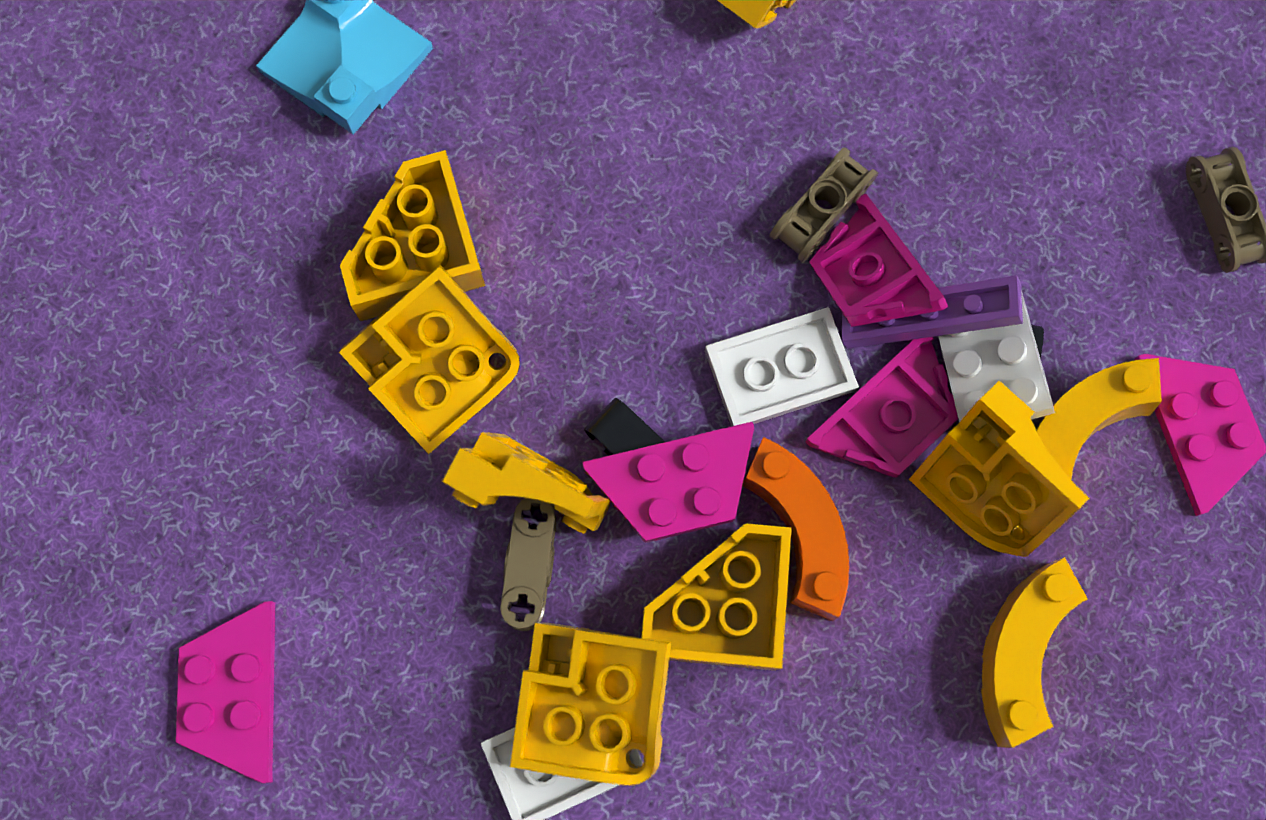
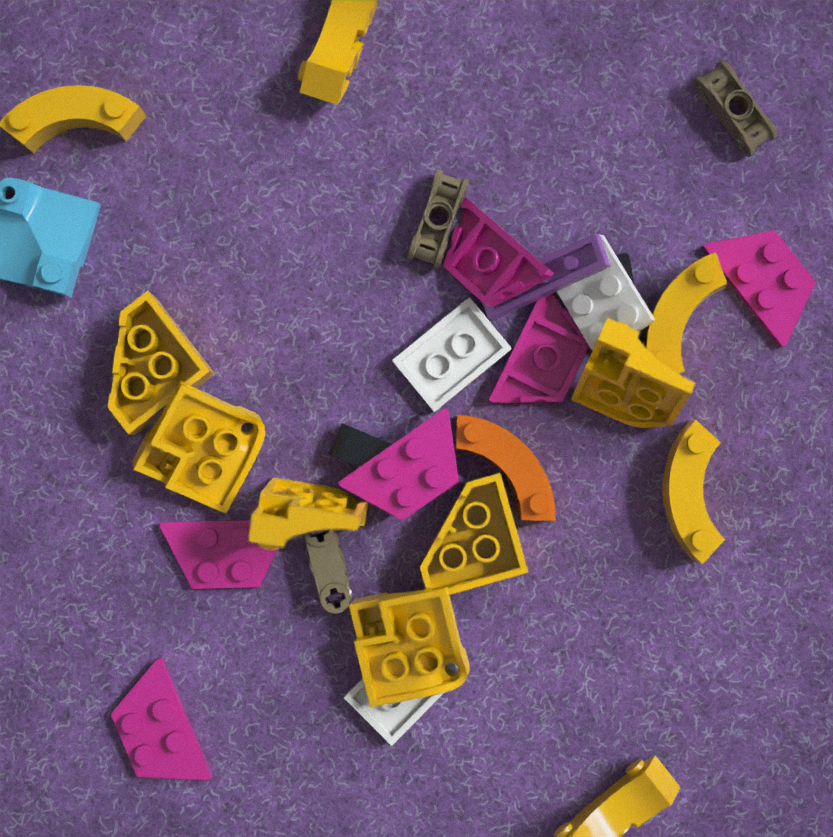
camera: 20 degrees left, 10 degrees up
(402, 500) = (218, 553): none -> dark pink wing

